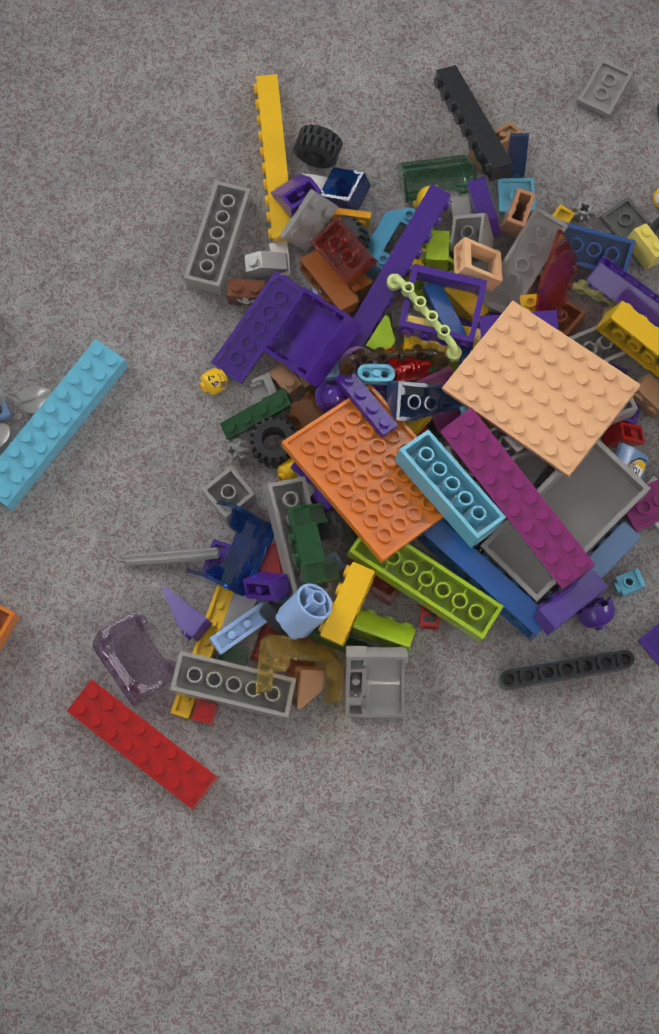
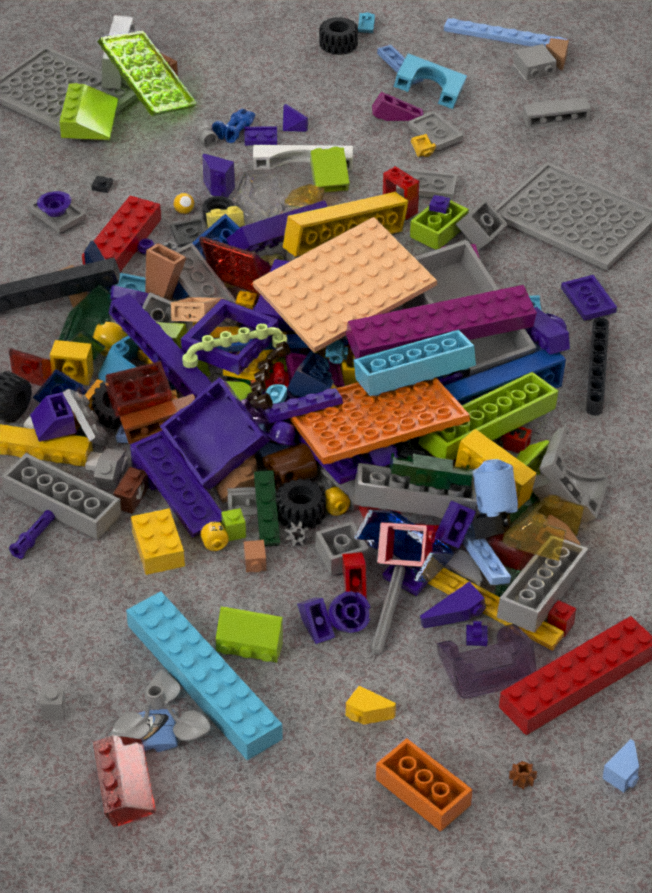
camera: 75 degrees left, 30 degrees down
(14, 726) = (522, 775): none -> dark orange gear
(48, 807) = (623, 768): none -> light blue slope
(56, 569) = (369, 707): none -> yellow slope
(100, 449) = (249, 634): none -> lime slope
(143, 497) = (316, 619): none -> dark purple slope
(150, 523) = (349, 612): none -> dark purple cylinder
(165, 231) = (27, 539): none -> dark purple pin
(170, 642) = (476, 634): none -> dark purple tile
(192, 336) = (157, 541): none -> yellow brick
(197, 514) = (354, 573): none -> red slope
(200, 423) = (255, 556): none -> nougat brick
(219, 537) = (386, 543): none -> window
(231, 392) = (234, 524): none -> lime brick
(374, 150) = (30, 366): none -> clear red slope
(386, 182) = (73, 360): none -> yellow brick
(586, 187) = (144, 245): none -> dark purple plate
(587, 160) = (126, 229): none -> red brick
(599, 79) = (54, 203): none -> dark purple hat

